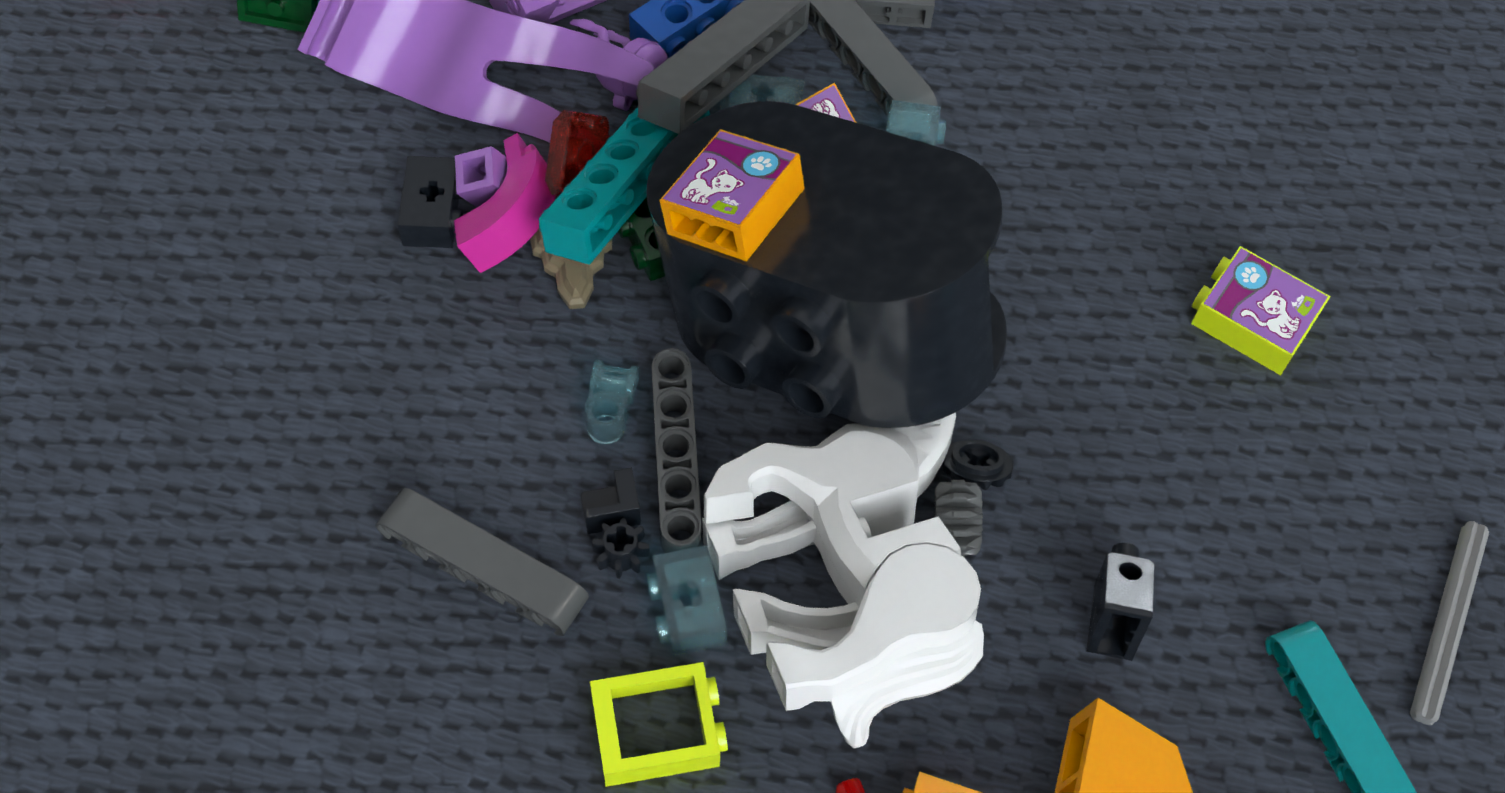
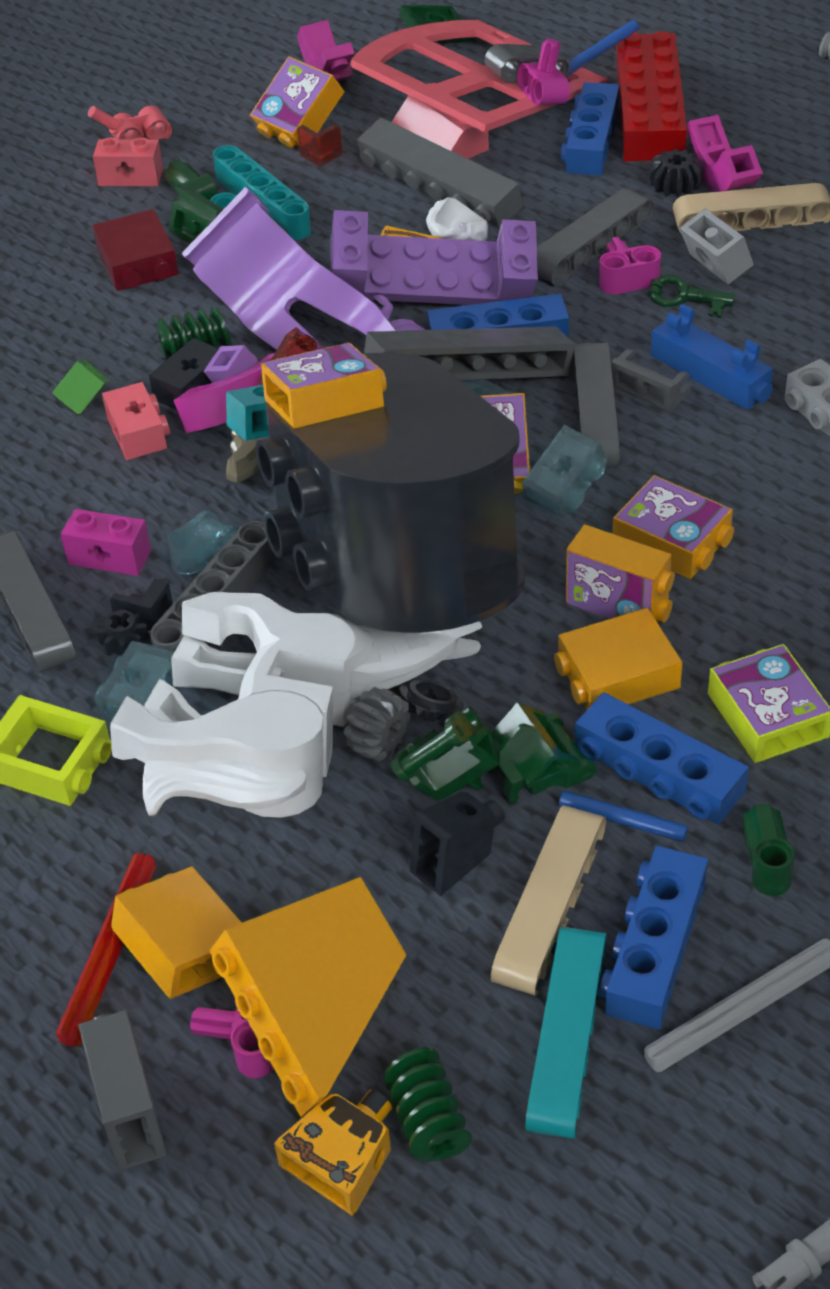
camera: 40 degrees right, 15 degrees down
(231, 65) = (135, 249): none -> dark red brick
(316, 269) = (80, 386): none -> bright green panel
(389, 144) = (203, 328): none -> dark green piece
(417, 284) = (136, 420): none -> coral brick
(515, 449) = (106, 542): none -> dark pink brick
(1044, 160) = (676, 523): none -> brick
(1053, 519) = (450, 759): none -> dark green piece
(1054, 246) = (617, 575): none -> brick
(1105, 333) = (619, 657): none -> light orange brick
(1112, 472) = (537, 753): none -> dark green piece
(1221, 490) = (625, 816): none -> blue piece
(1236, 406) = (661, 758): none -> blue brick
(1237, 612) = (549, 893): none -> tan beam
(1351, 573) = (646, 996): none -> blue brick
(1366, 459) = (768, 850): none -> dark green piece

